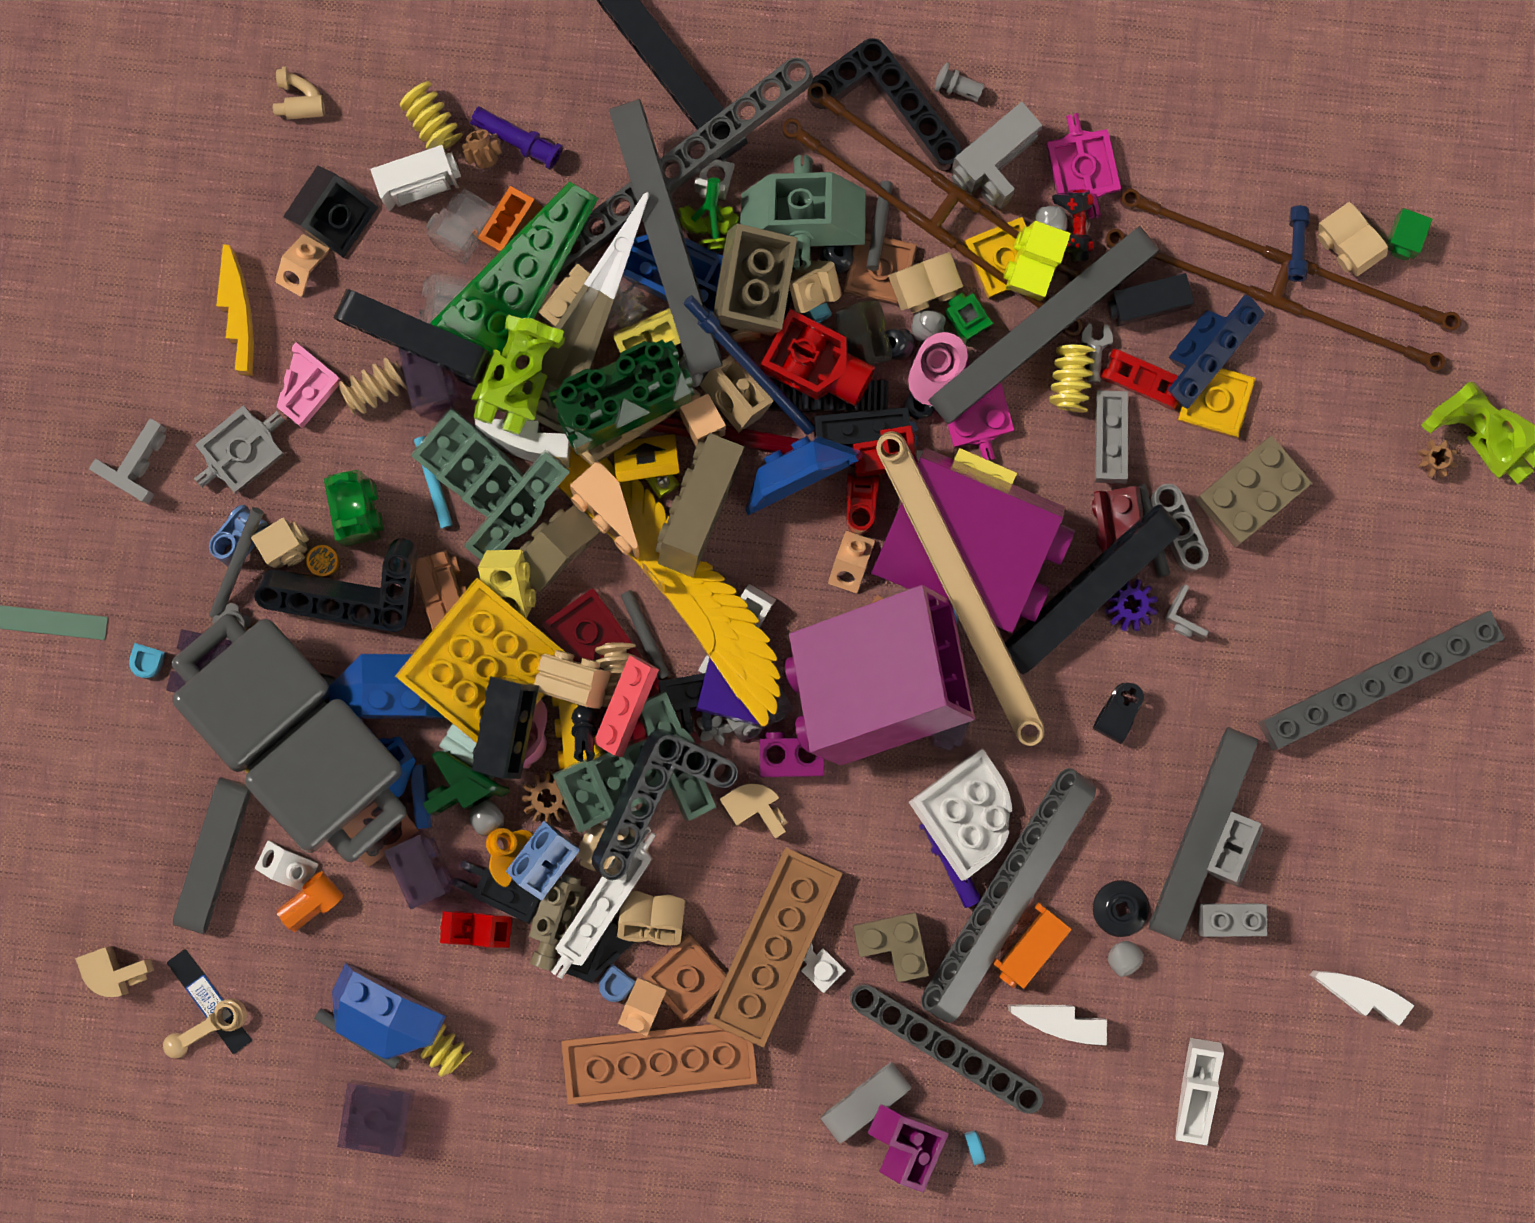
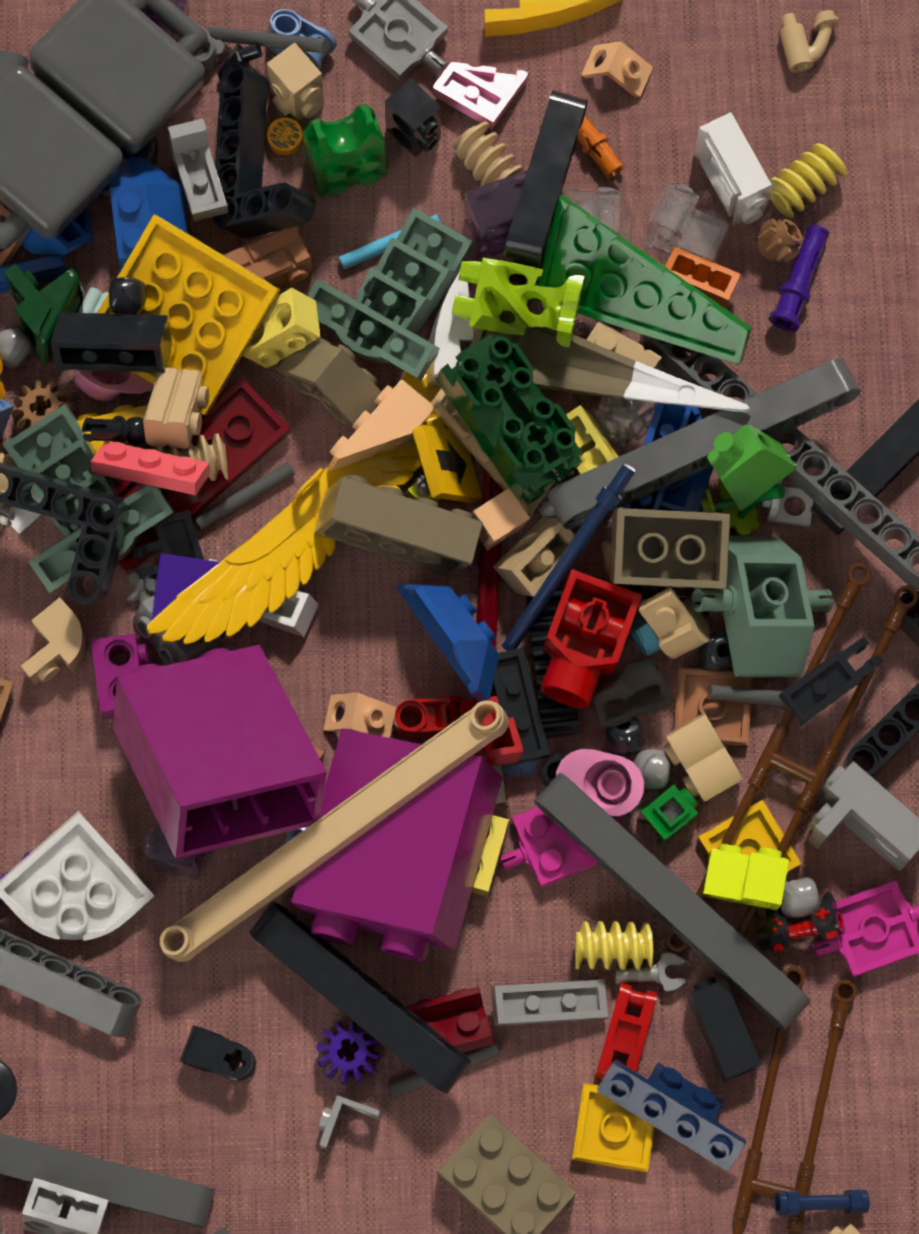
camera: 80 degrees right, 10 degrees down
(247, 590) = (242, 56): none -> black bar
(329, 444) = (413, 118): none -> black brick
(330, 211) = (681, 89): black slope -> none
(354, 638) = (197, 169): none -> light grey bracket
(379, 287) = (596, 147): none -> orange pin
(466, 709) = (127, 295): none -> black piece
(691, 200) = (749, 463): none -> bright green torso
(882, 168) = (827, 683): none -> black hinge
(1192, 538) = (439, 1115): light grey beam -> none

